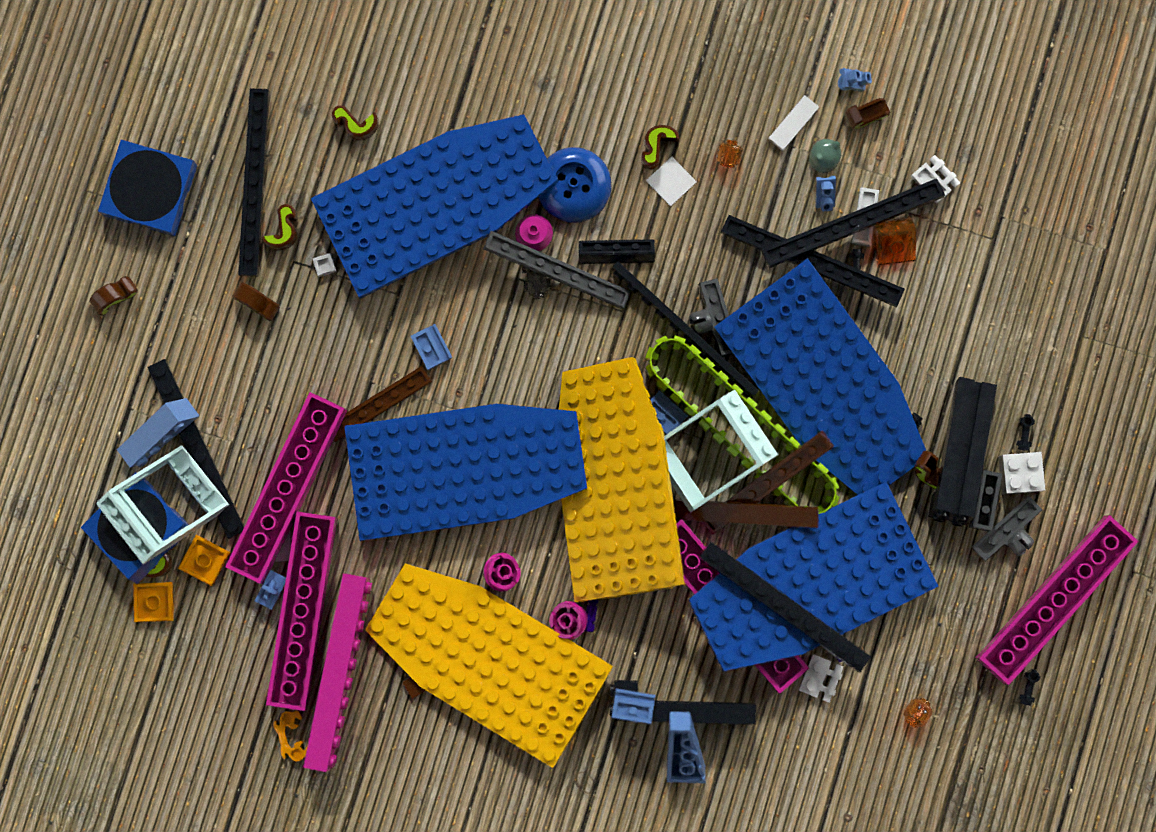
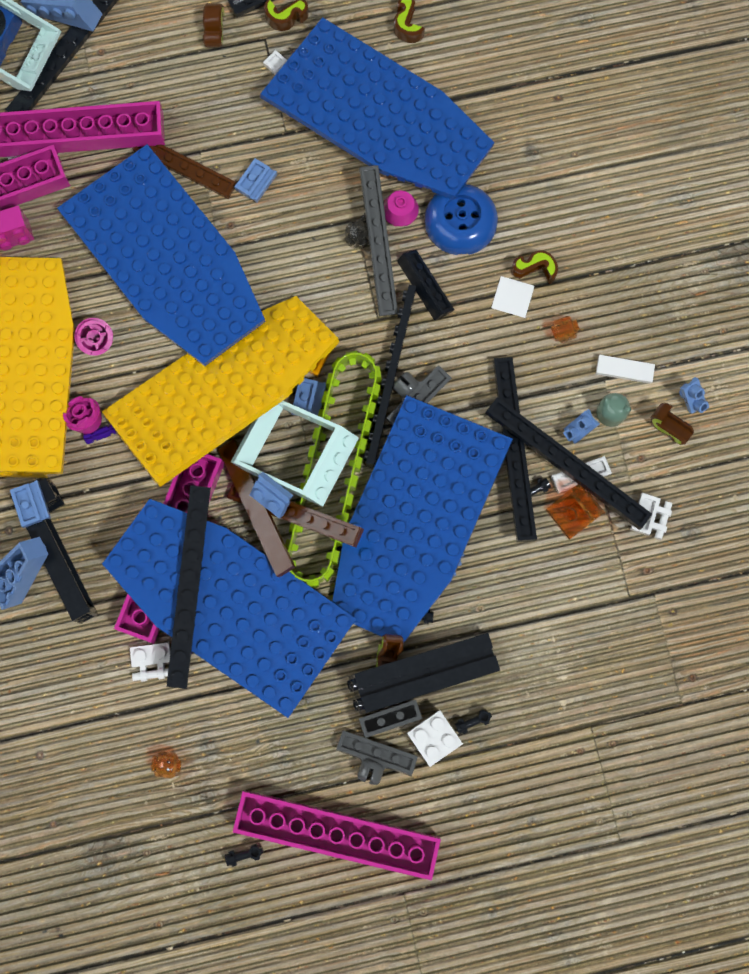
camera: 55 degrees right, 5 degrees down
(743, 493) = (271, 495): none -> medium blue plate

